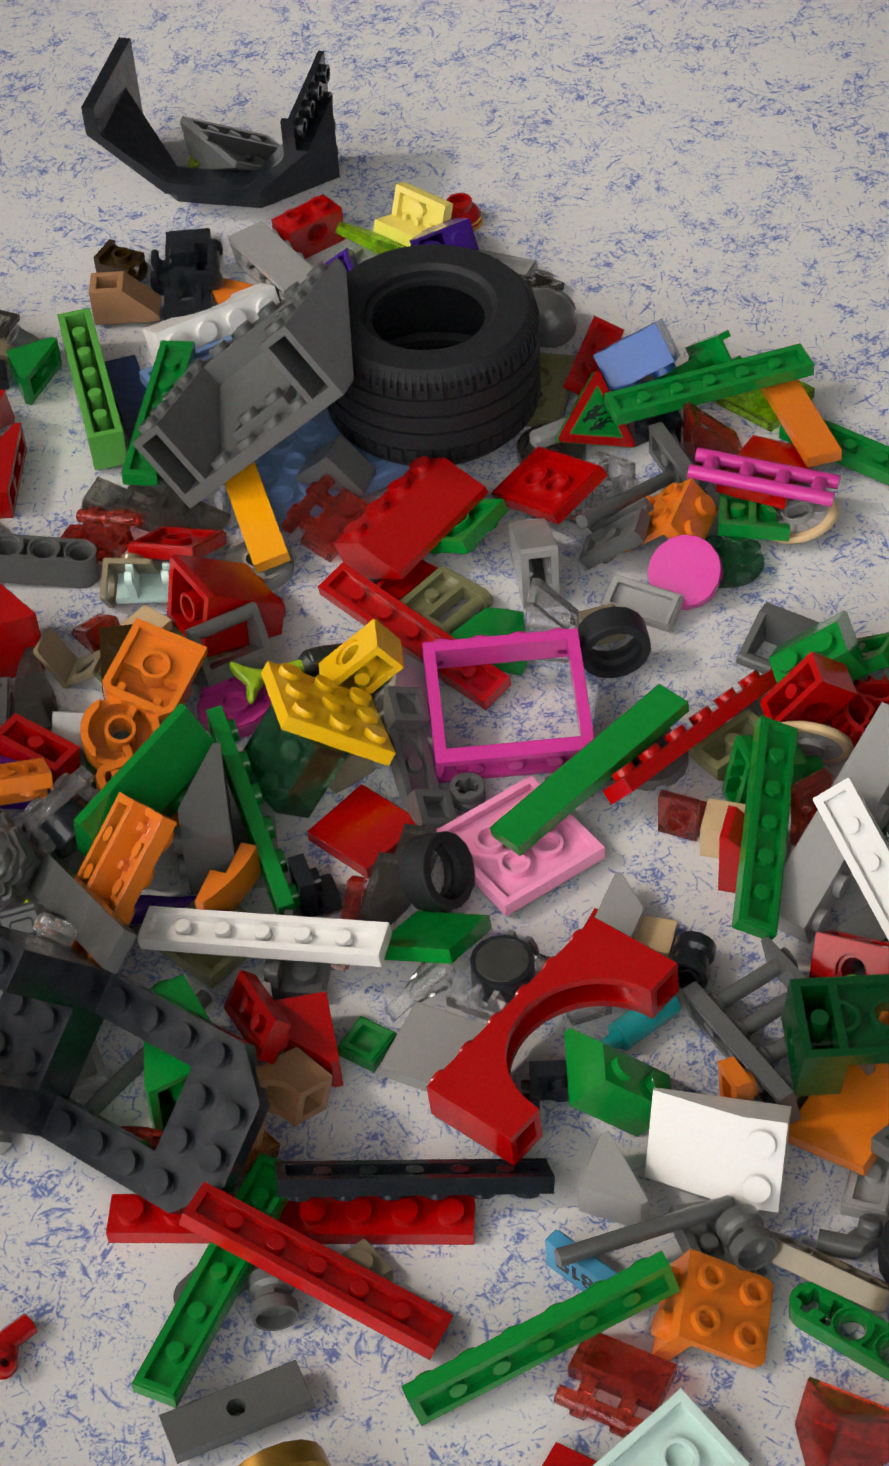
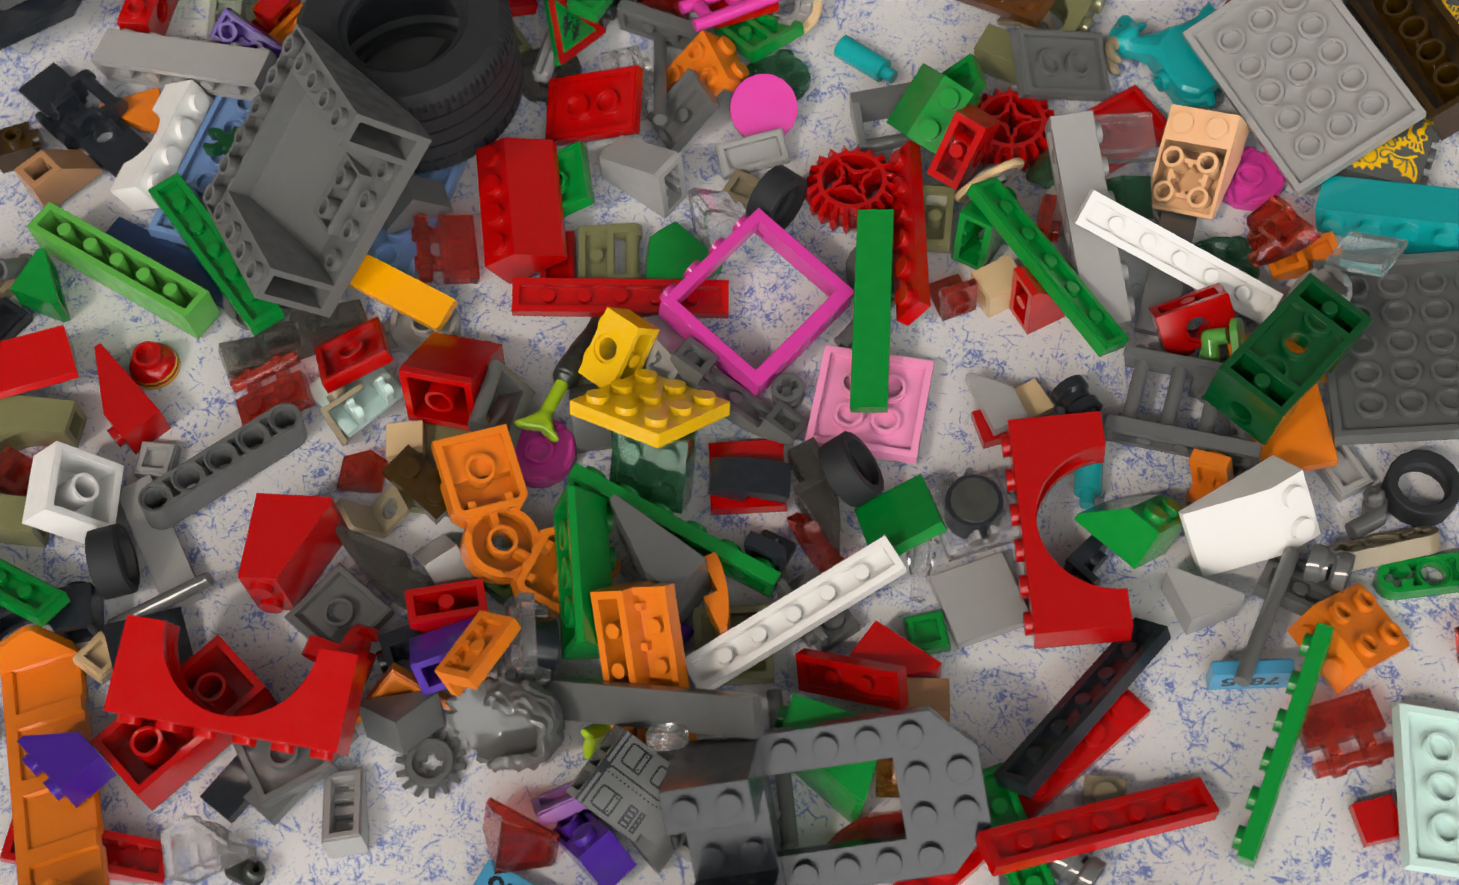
camera: 40 degrees left, 15 degrees up
(47, 466) = (153, 365): none -> red piece
(357, 825) = (754, 477): none -> black slope
(691, 669) = (857, 178): none -> red gear
(819, 590) = (864, 59): none -> teal cylinder

